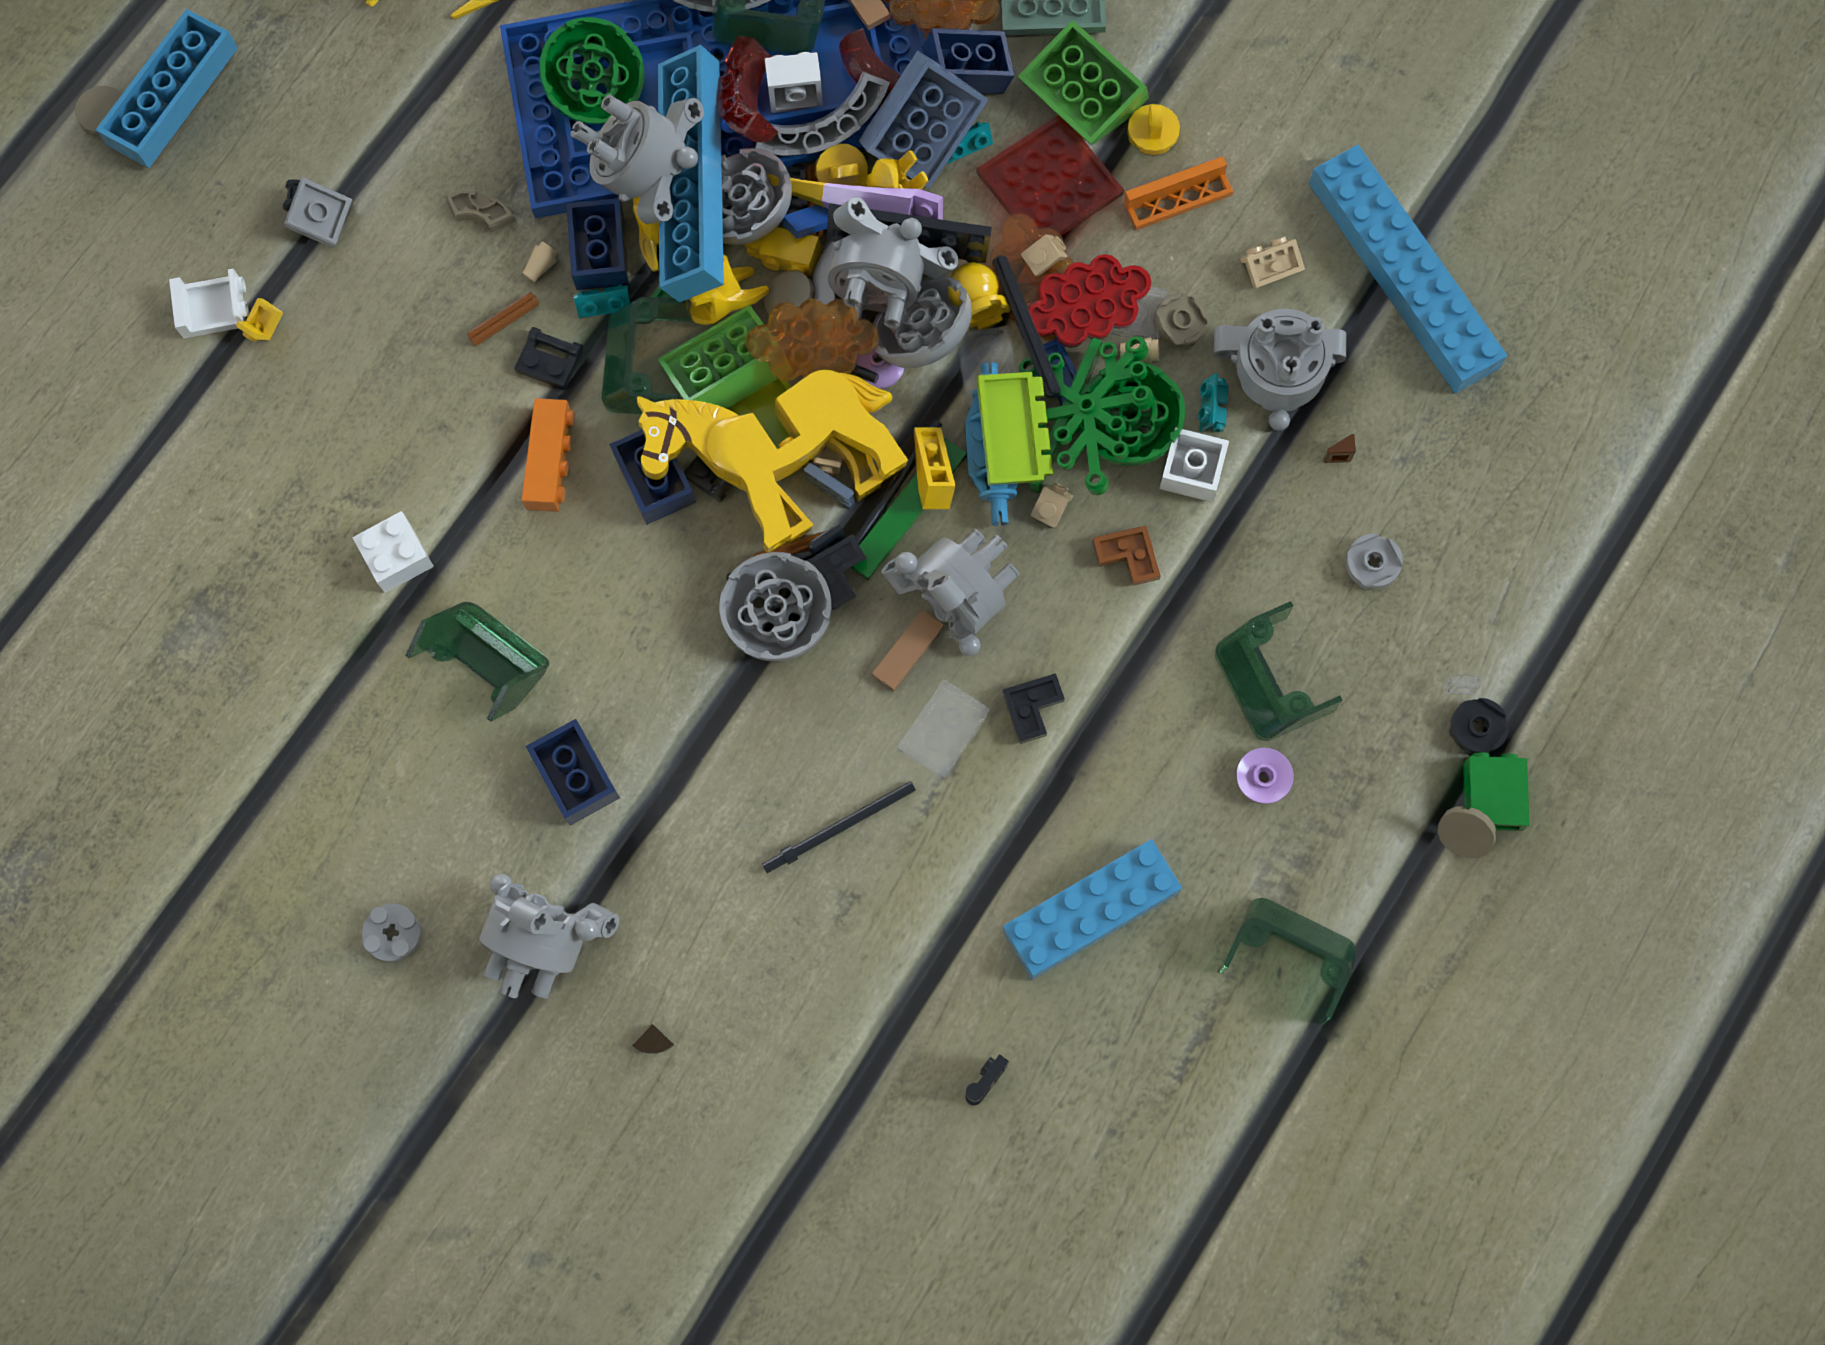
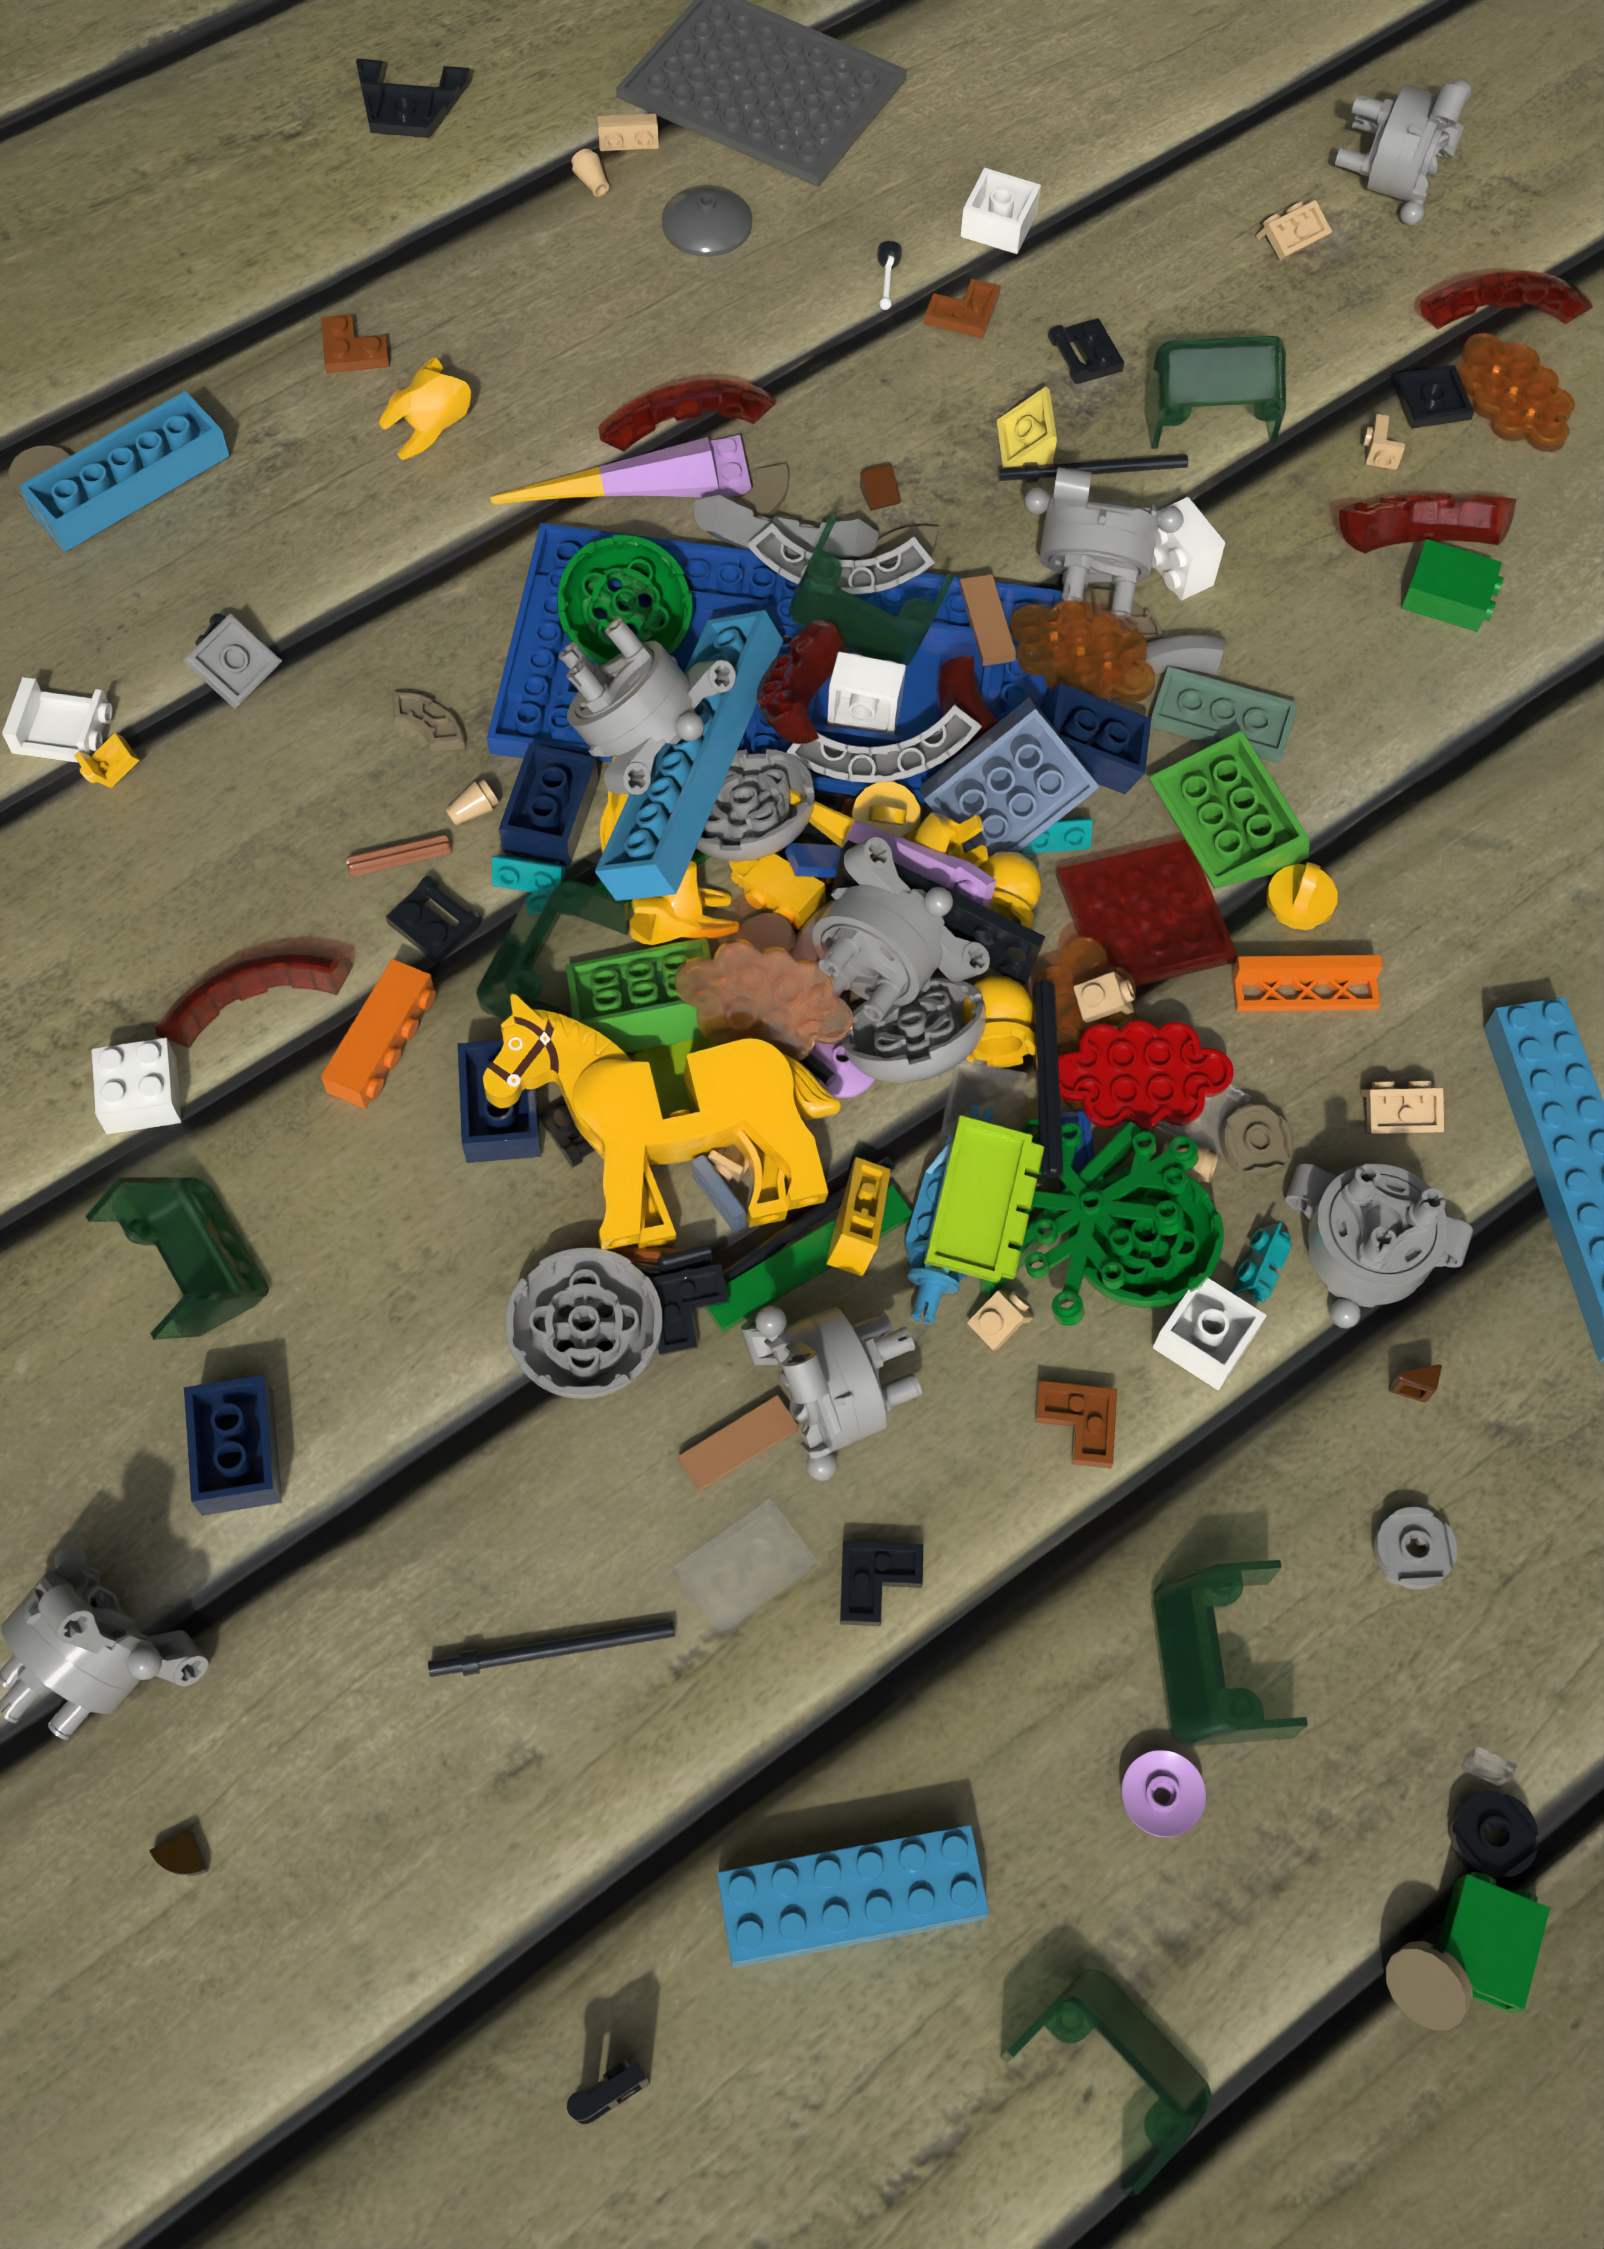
camera: 15 degrees right, 10 degrees down
(434, 448) = (246, 979): none -> clear red brick
(956, 194) = (1016, 886): none -> yellow tile

